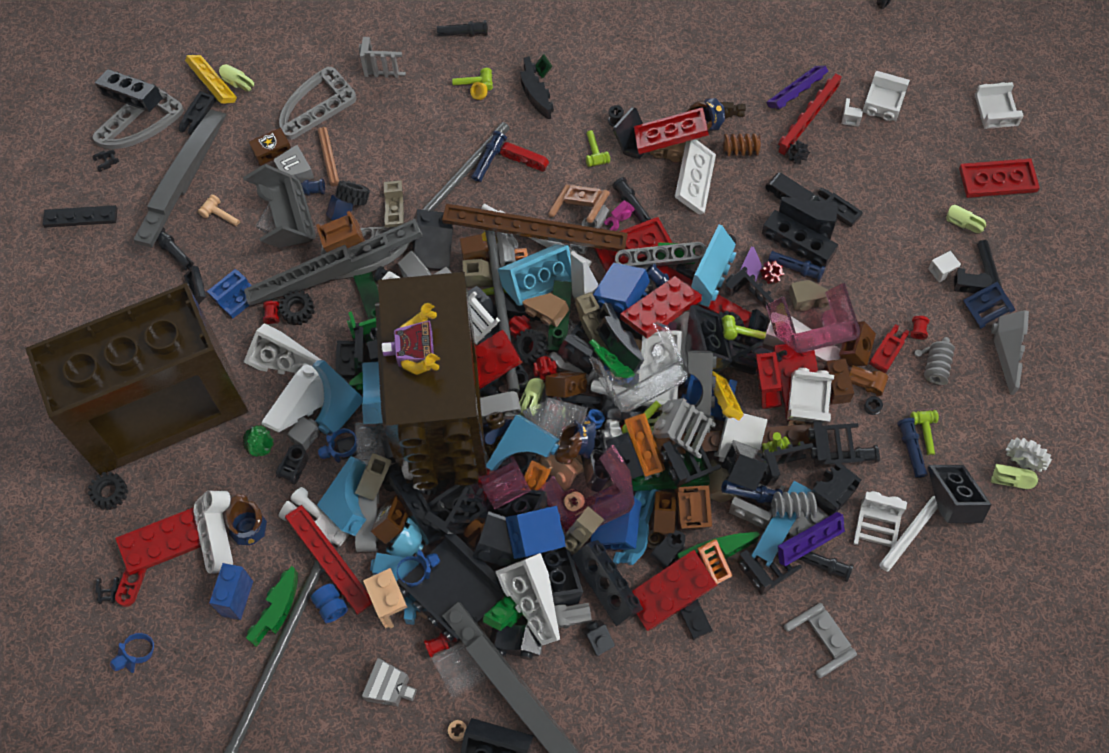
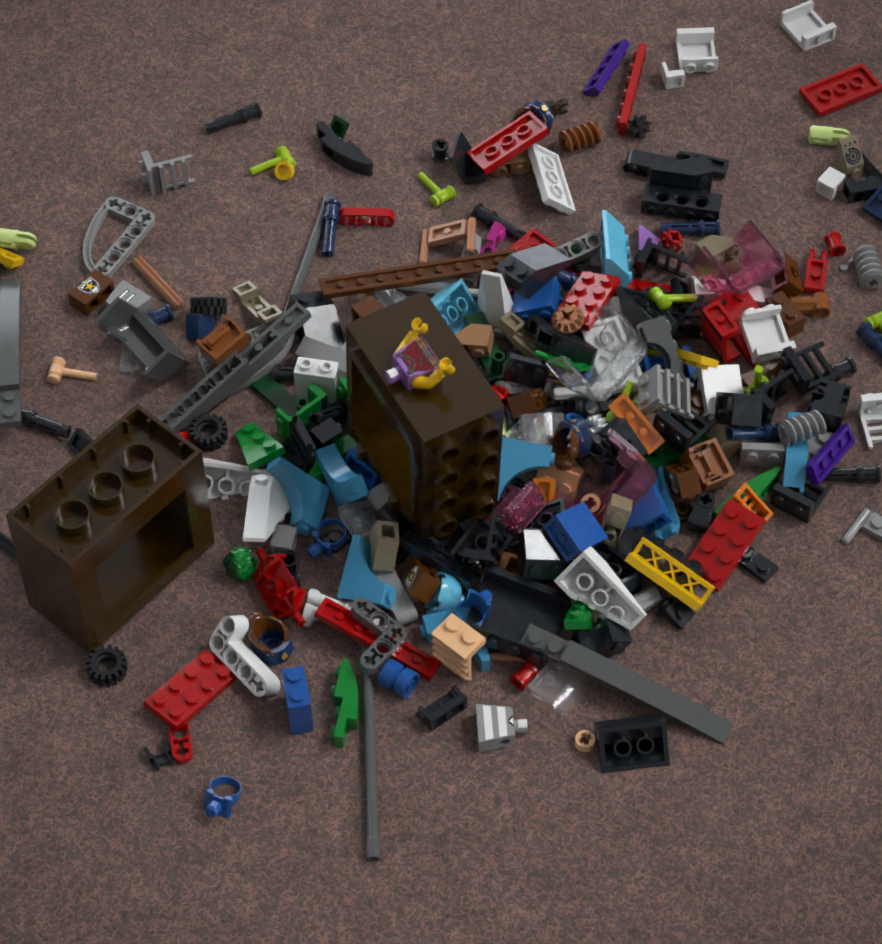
camera: 25 degrees left, 10 degrees down
(272, 477) = (287, 597): none -> red plate
(325, 337) = (258, 446): none -> green wing
(335, 557) = (384, 633): none -> dark grey beam
(353, 647) = (443, 709): none -> black hinge
(601, 611) = (665, 581): none -> yellow fence
(628, 259) = (532, 268): none -> black slope
(639, 321) = (566, 326): none -> nougat gear
(869, 410) = (826, 331): black bush -> none
(972, 249) = (849, 157): none -> dark tan slope

